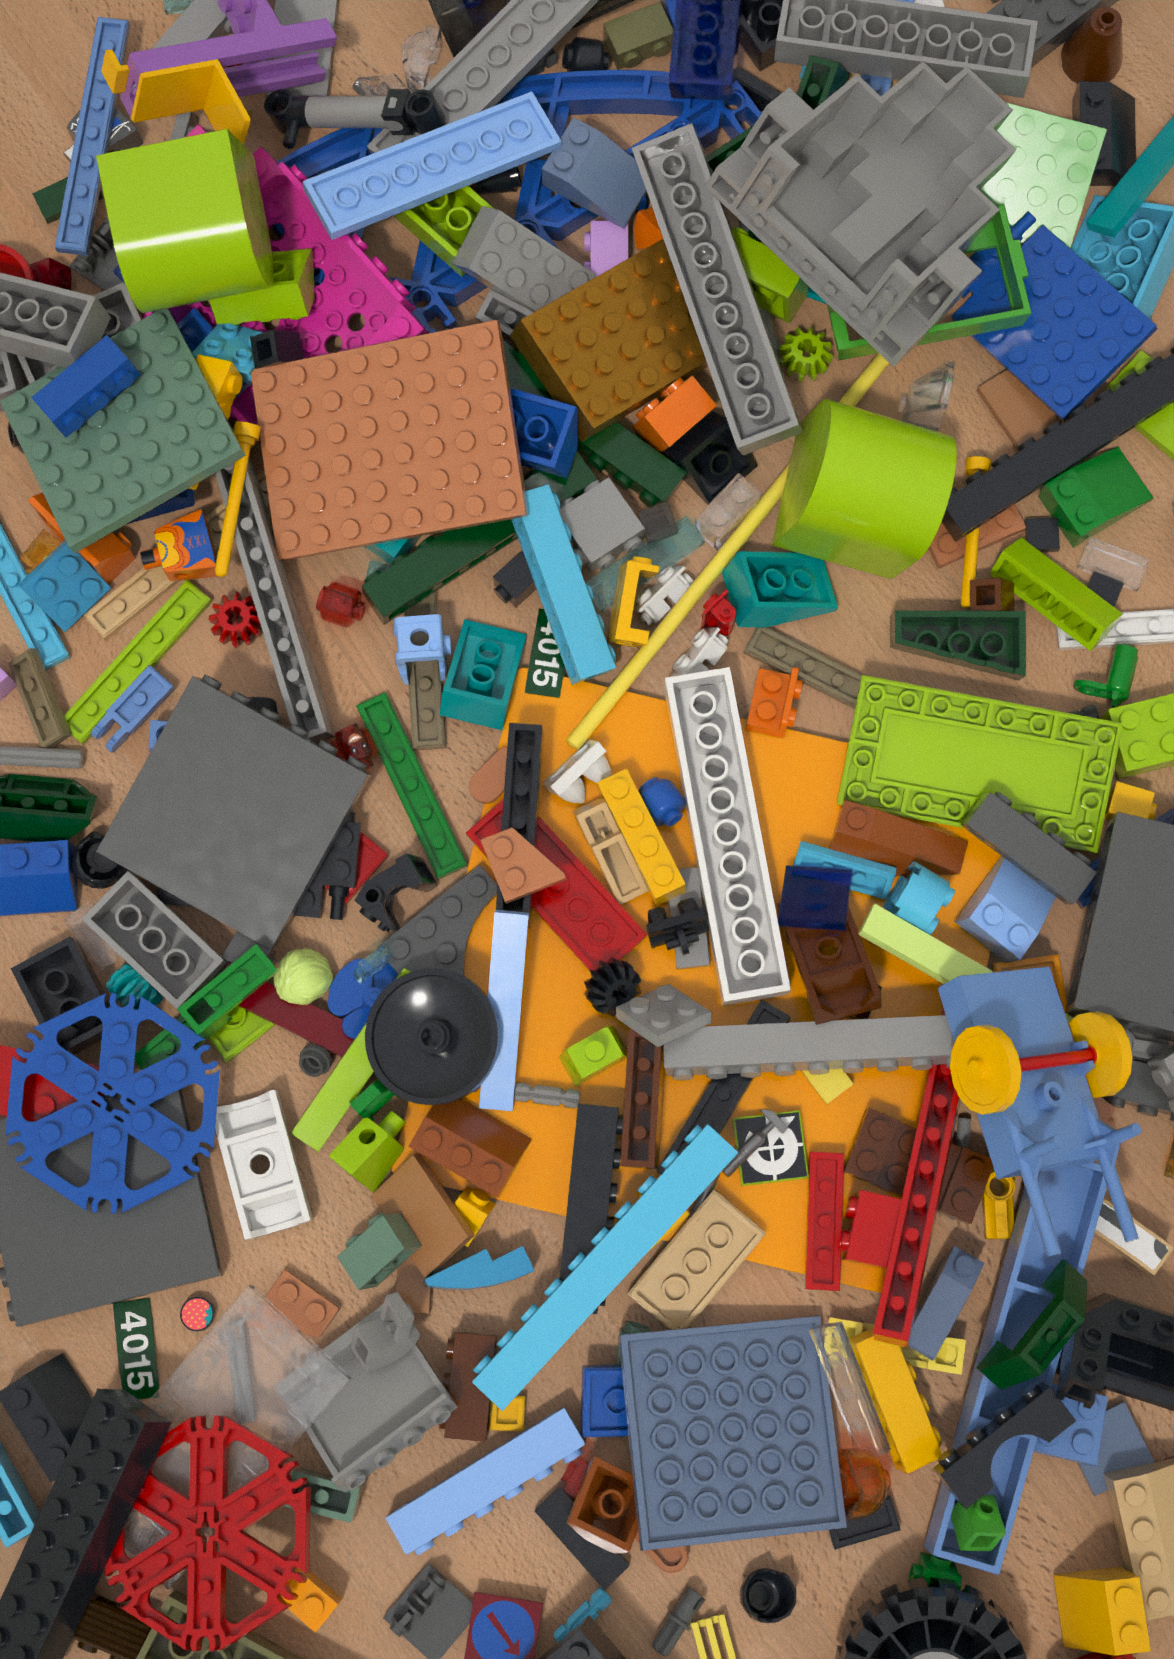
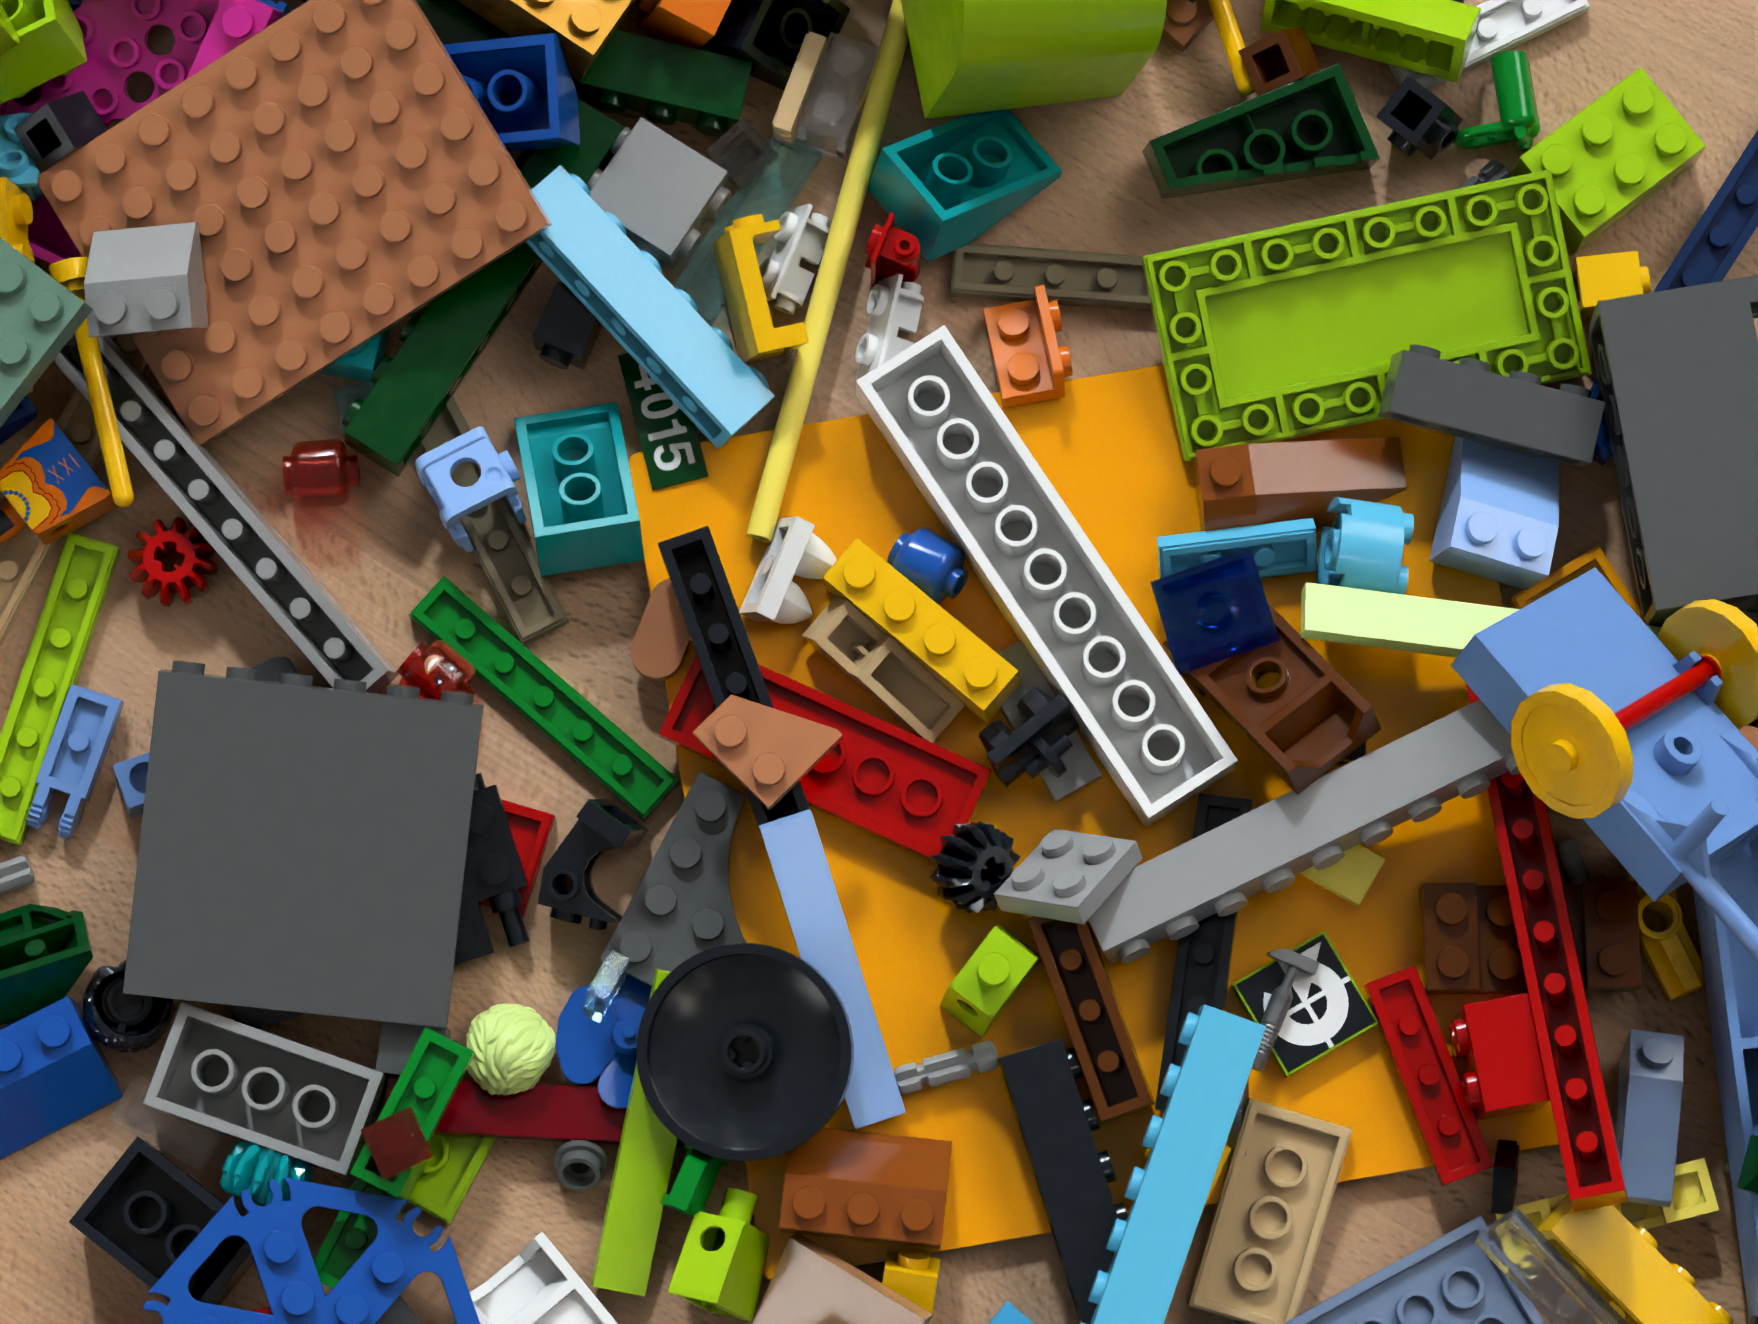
camera: 25 degrees left, 0 degrees up
(210, 1004) = (397, 1143): none -> clear red plate
(285, 453) = (145, 281): none -> light grey slope
(705, 497) = (798, 87): none -> tan tile
(844, 1299) = (1505, 1176): none -> black tile
(1058, 664) = (1419, 120): none -> black brick

